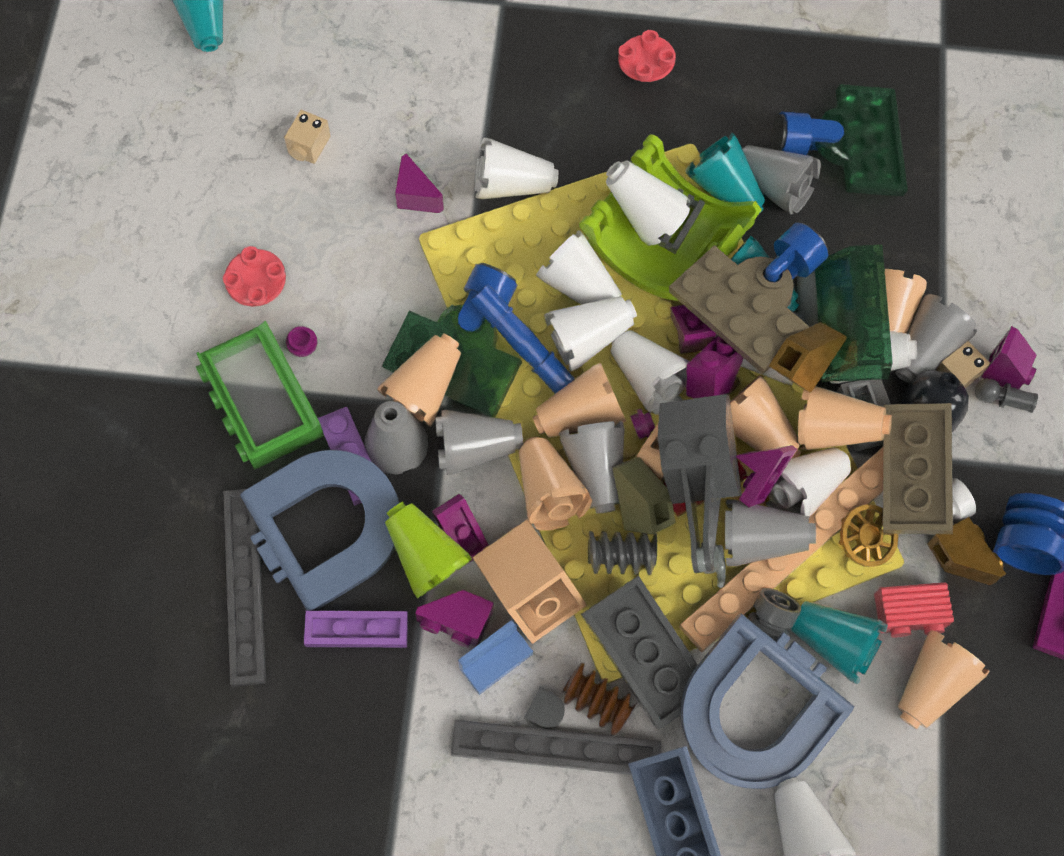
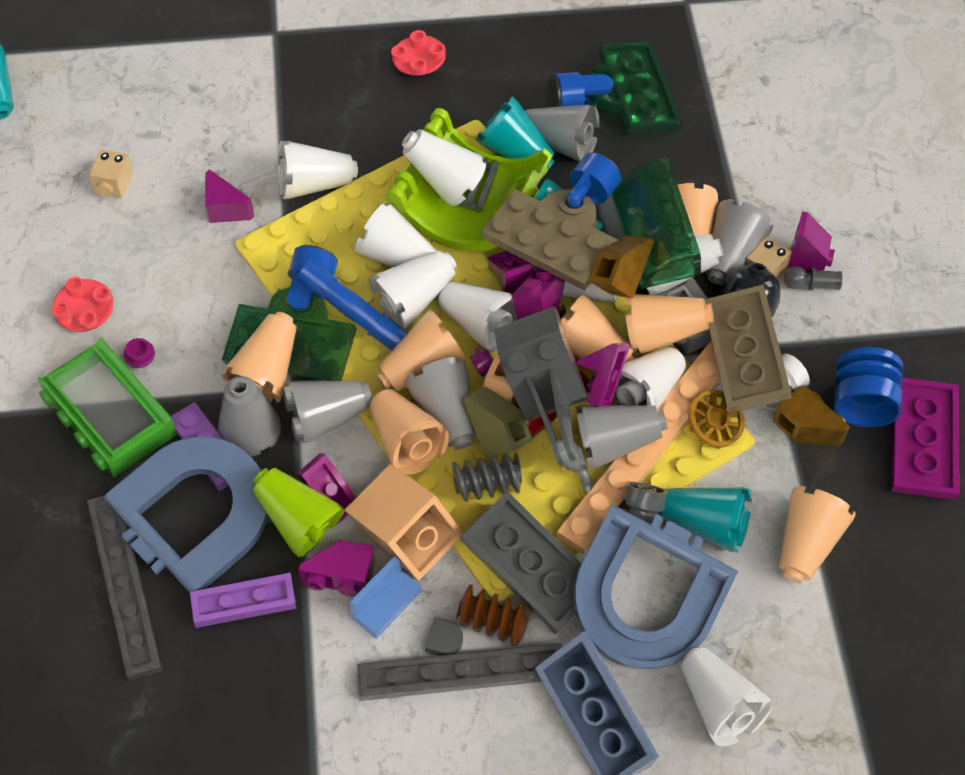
camera: 10 degrees left, 10 degrees down
(914, 608) = (773, 475): coral brick -> none

